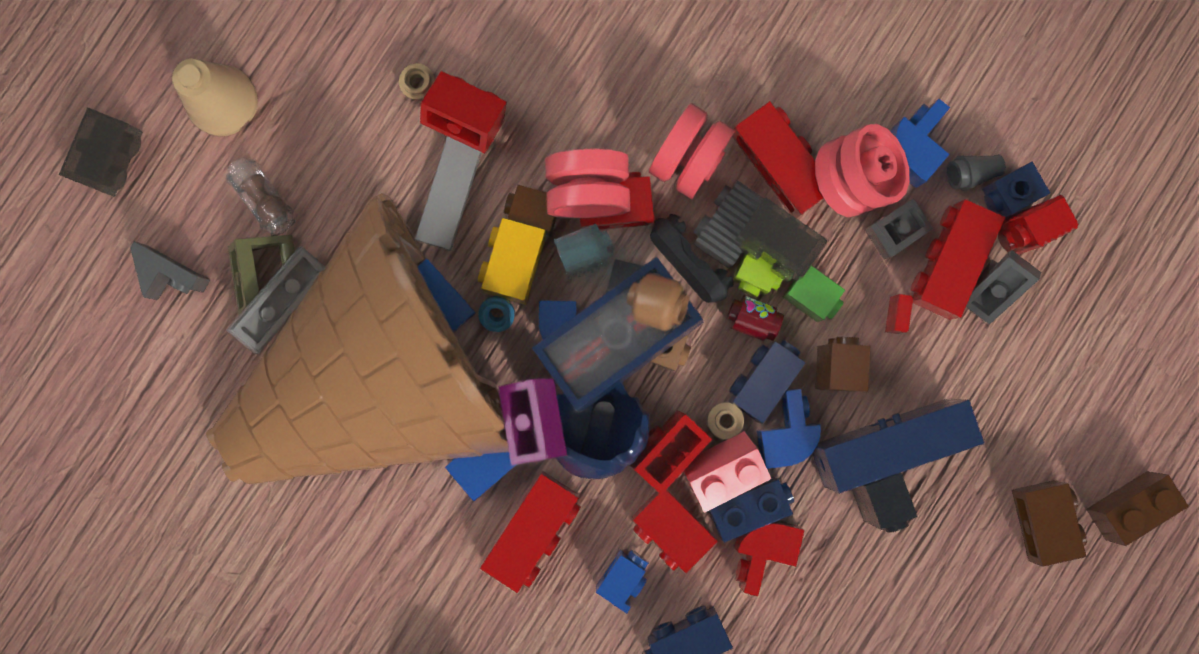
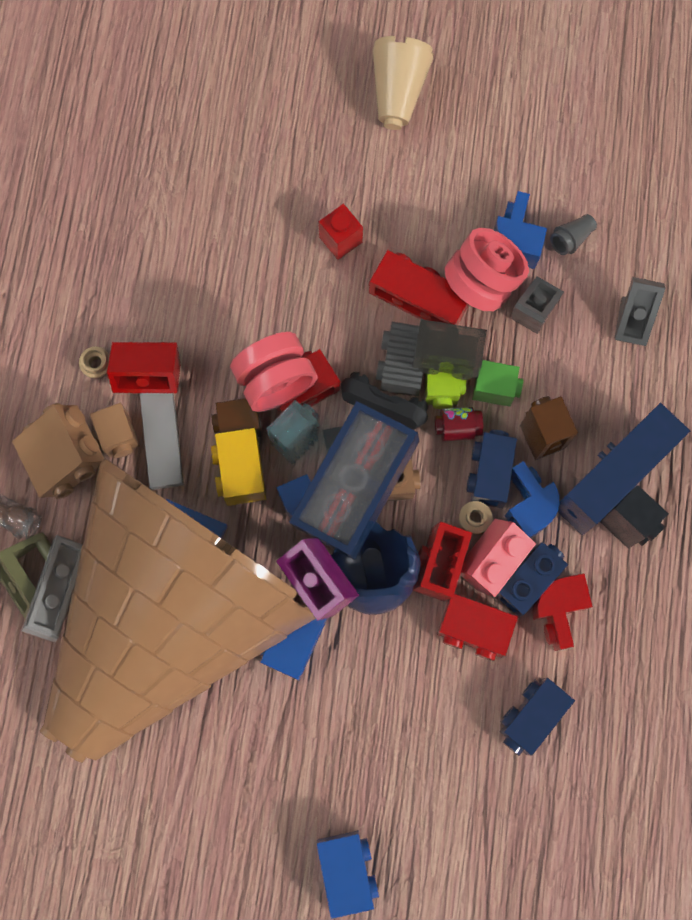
camera: 25 degrees left, 10 degrees down
(338, 161) = (58, 451): none -> medium nougat brick
(404, 165) = (114, 431): none -> medium nougat brick
(494, 323) = (245, 527): dark azure plate -> none
(531, 533) = (359, 685): red brick -> none
(623, 579) = (455, 688): blue brick -> none
(658, 302) = (375, 432): medium nougat head -> none
(695, 153) = (344, 314): coral wheel -> none
(731, 56) = (340, 231): none -> red brick
(899, 314) = (571, 368): red tile -> none
(956, 259) = (594, 306): red brick -> none
(1015, 190) = (612, 235): dark blue brick -> none
(1037, 226) = (642, 250): red brick -> none

